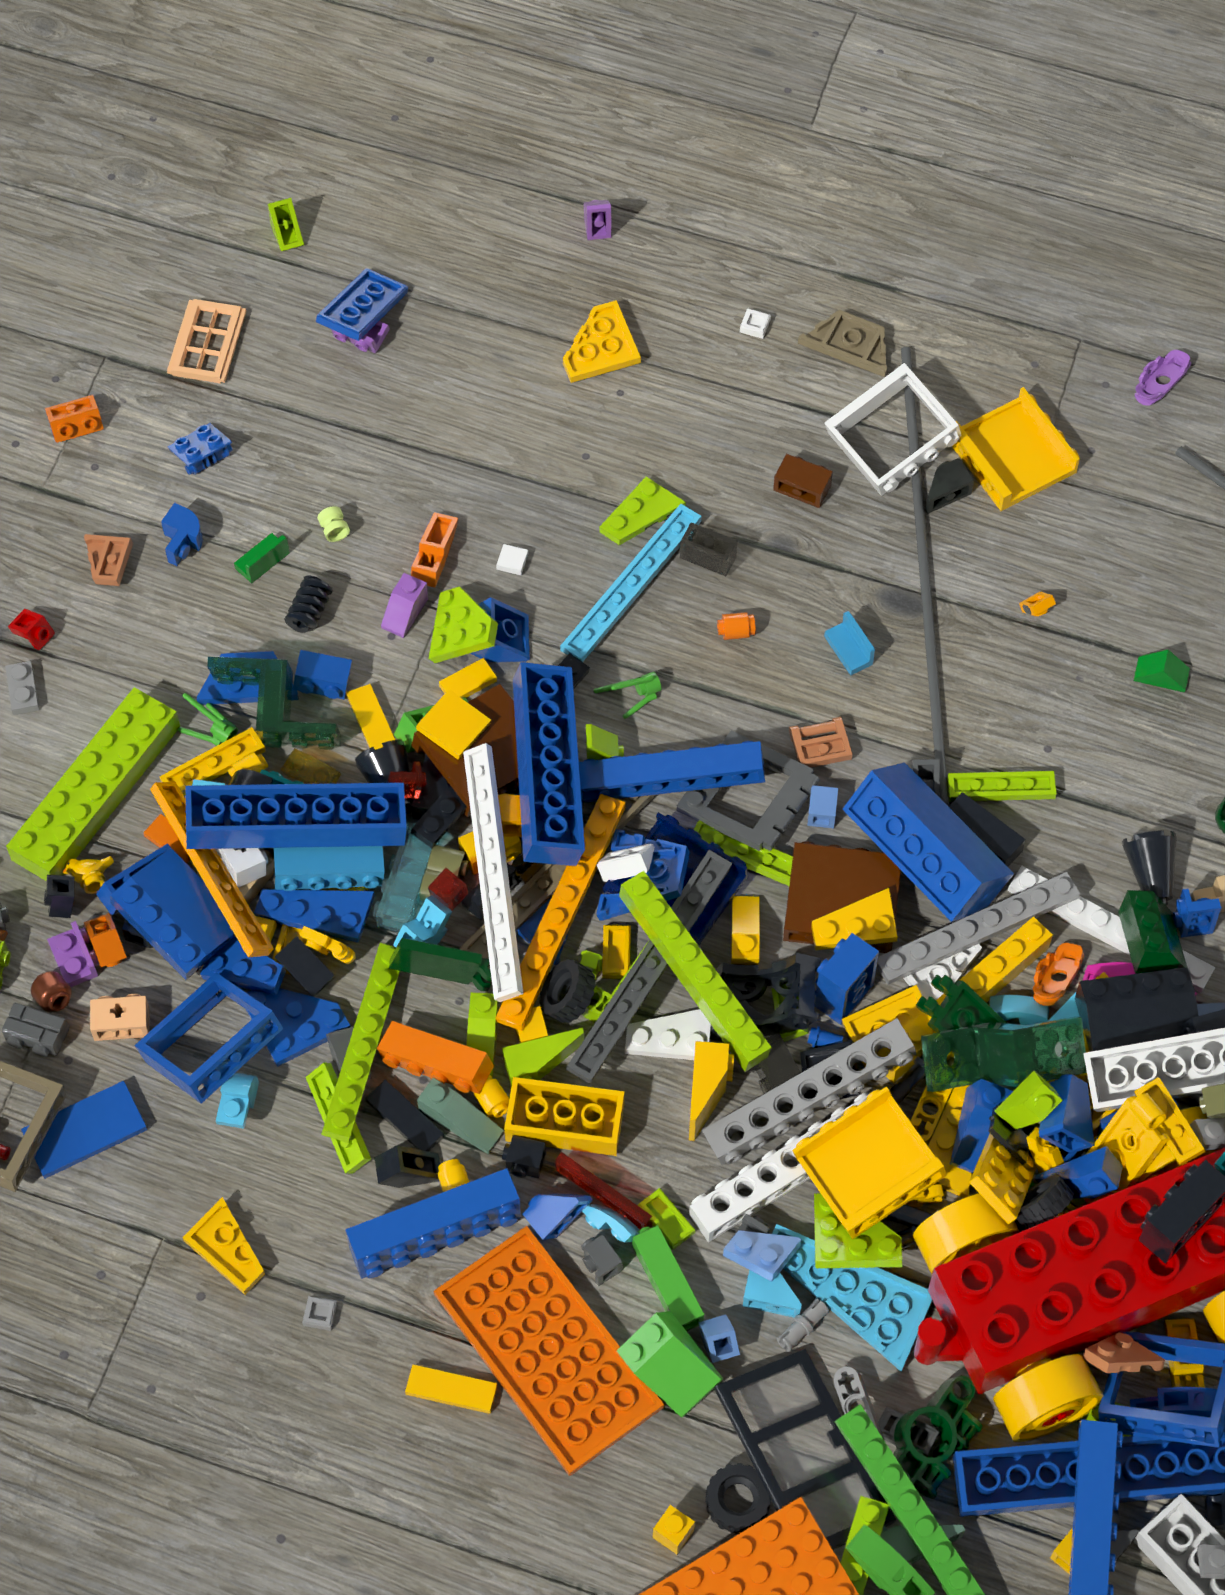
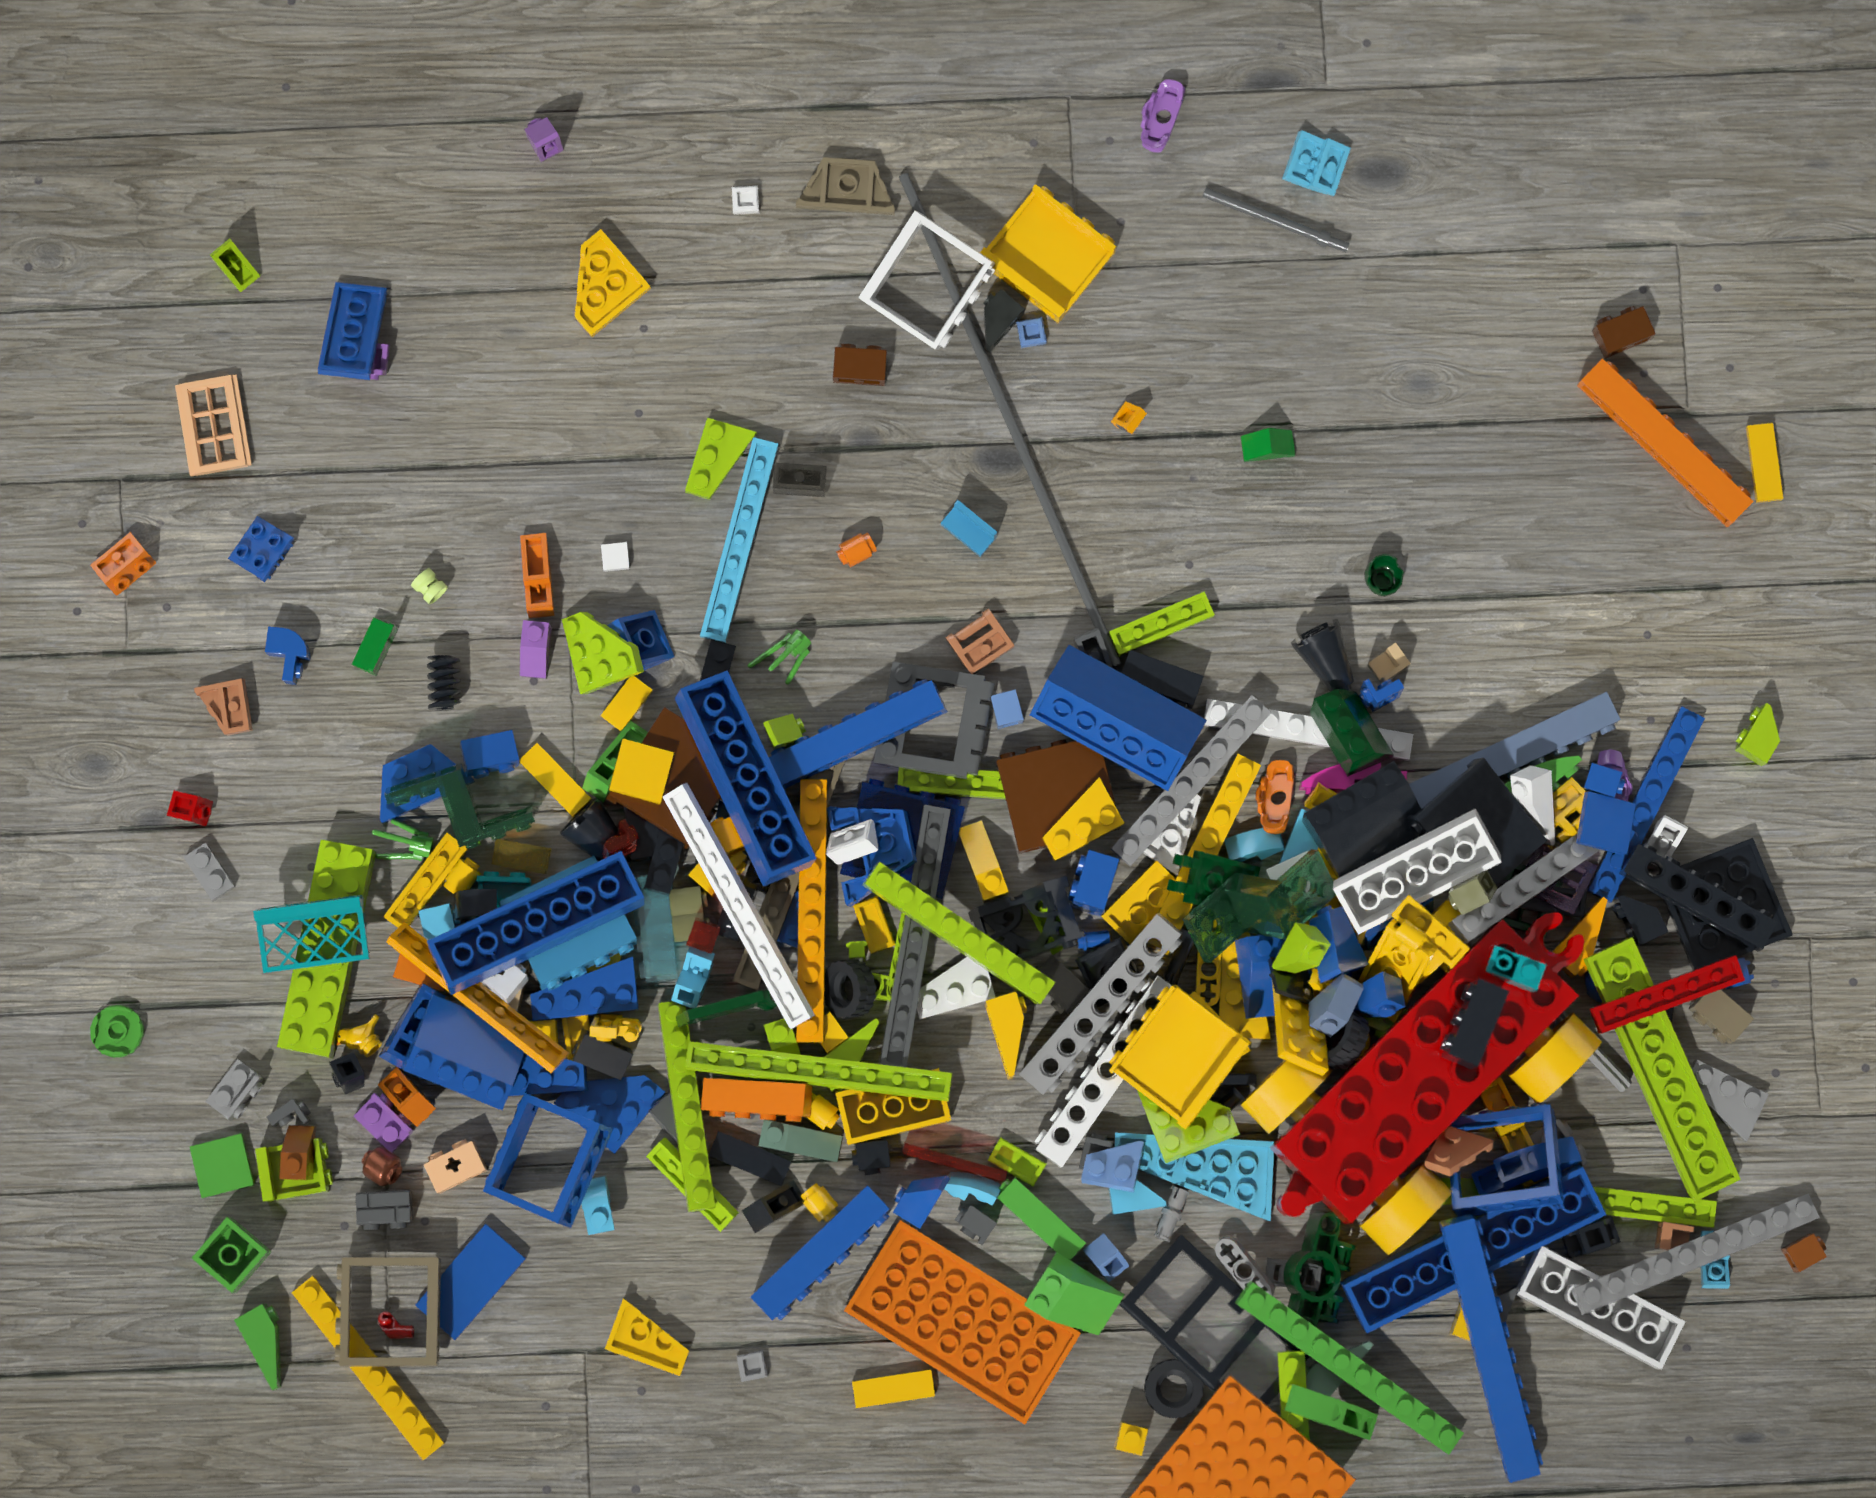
camera: 25 degrees left, 20 degrees up
(86, 733) = (310, 910): none -> teal fence
(507, 1050) = (818, 1071): none -> lime plate
(972, 508) = (1031, 332): none -> medium blue tile
(1046, 1164) = (1334, 1005): none -> sand blue slope

